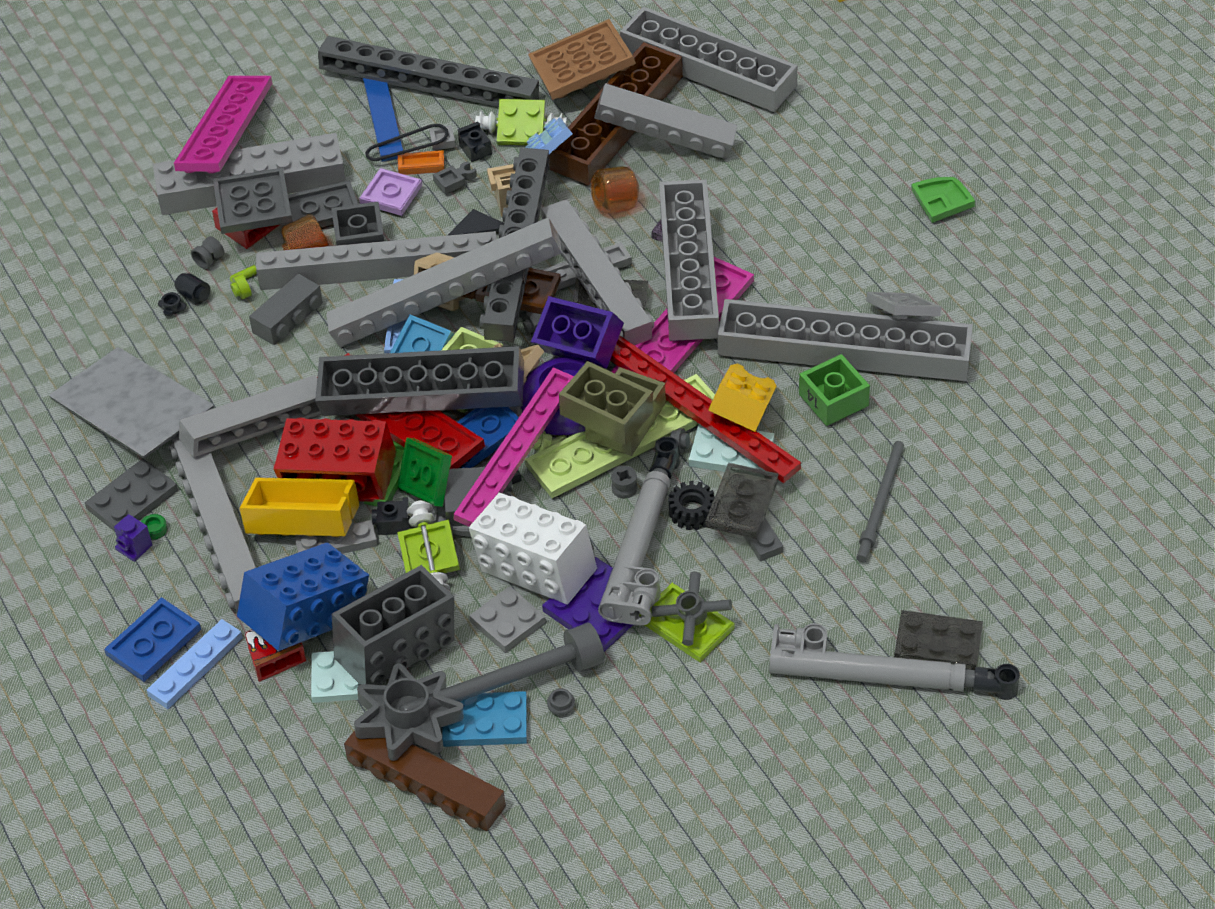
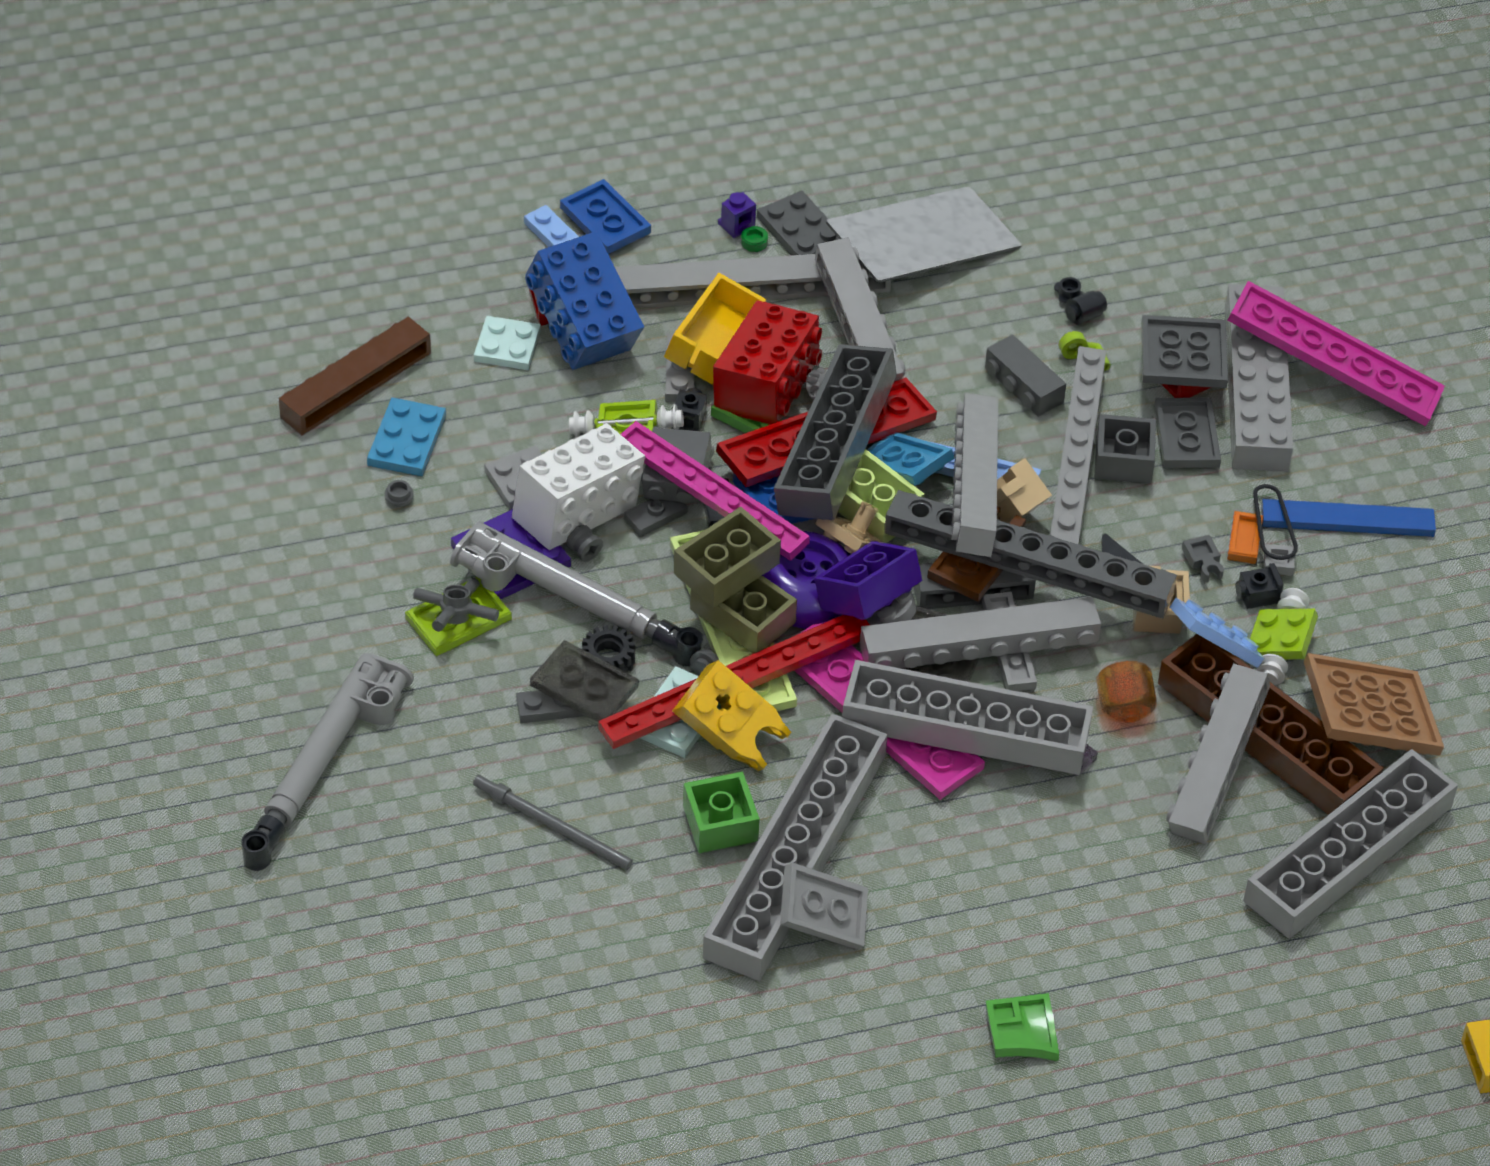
camera: 100 degrees right, 0 degrees up
(207, 252) = (1131, 323): dark grey wheel -> none
(303, 234) = (1125, 396): clear orange head -> none
(392, 191) = (1195, 497): lavender plate -> none
(393, 626) = (519, 362): dark grey brick -> none
(416, 709) = (423, 368): dark grey piece -> none
(424, 72) = (1395, 559): dark grey brick -> none
(424, 471) = (719, 421): green tile -> none
(624, 482) = (665, 603): dark grey wheel -> none
(938, 638) = (341, 817): clear smoke plate -> none

